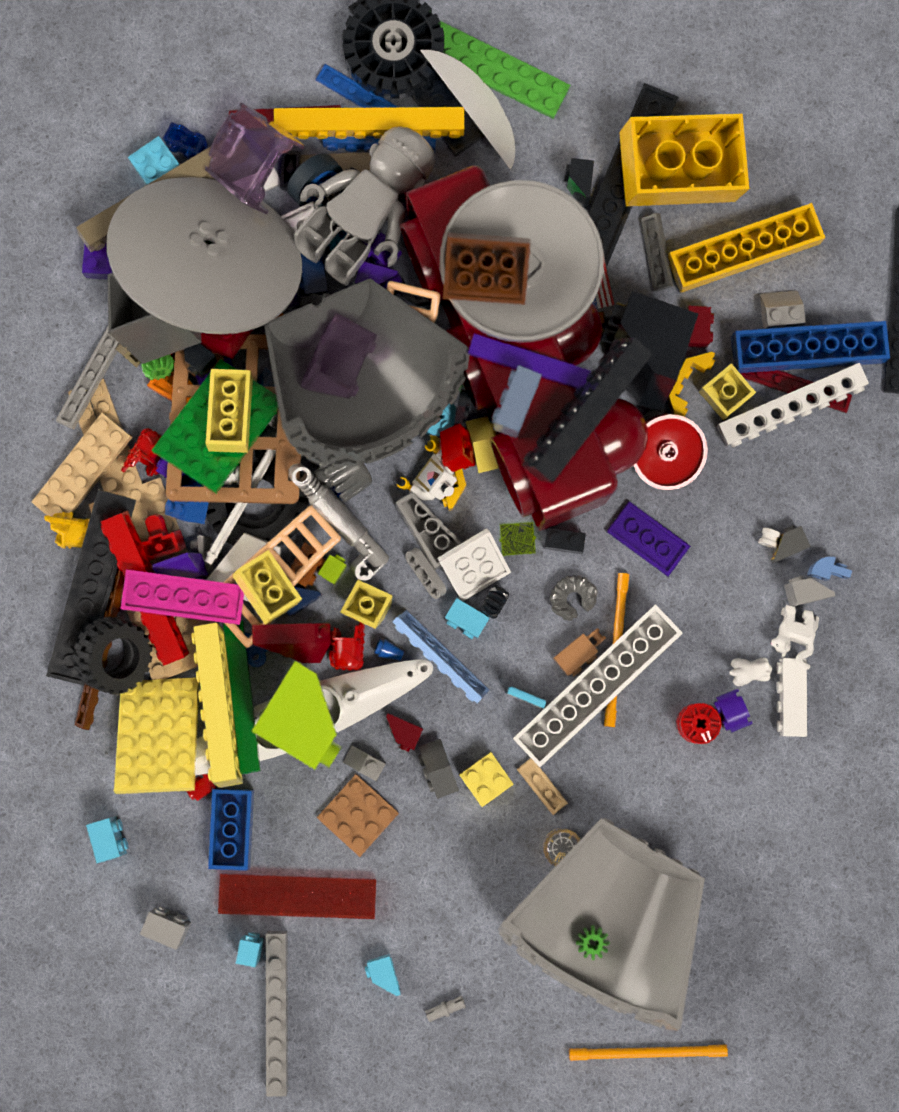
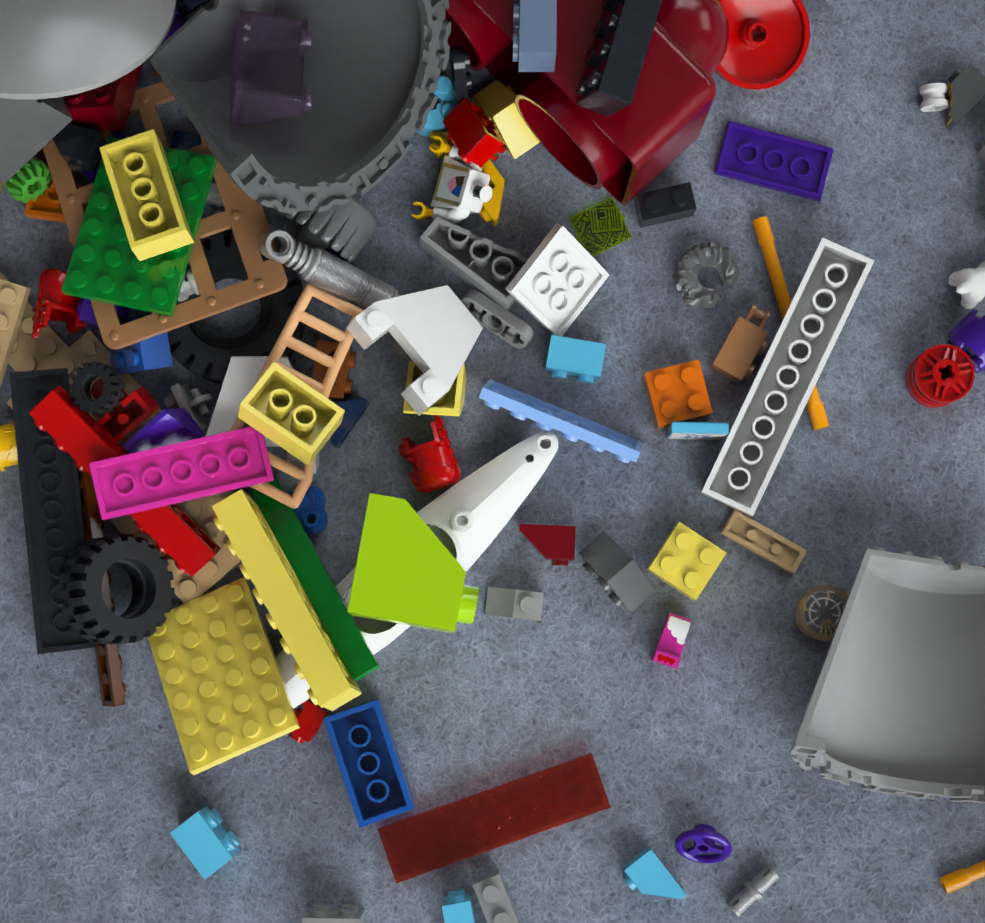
camera: 15 degrees left, 0 degrees up
(140, 517) = (82, 384): none -> black tyre
(239, 507) = (211, 326): white piece -> none
(297, 641) = (355, 473): dark red wedge -> none
(333, 569) = (370, 363): lime brick -> none
(357, 815) = (532, 677): medium nougat plate -> none
(379, 566) = (433, 332): none -> white wedge
(388, 650) = (486, 441): blue cone -> none
(426, 964) = (704, 841): none -> dark purple piece
(456, 827) = (671, 640): none -> dark pink leg
(494, 601) = (603, 320): black gear -> none
(523, 668) = (677, 394): none -> orange brick
(590, 949) = (926, 718): bright green gear -> none

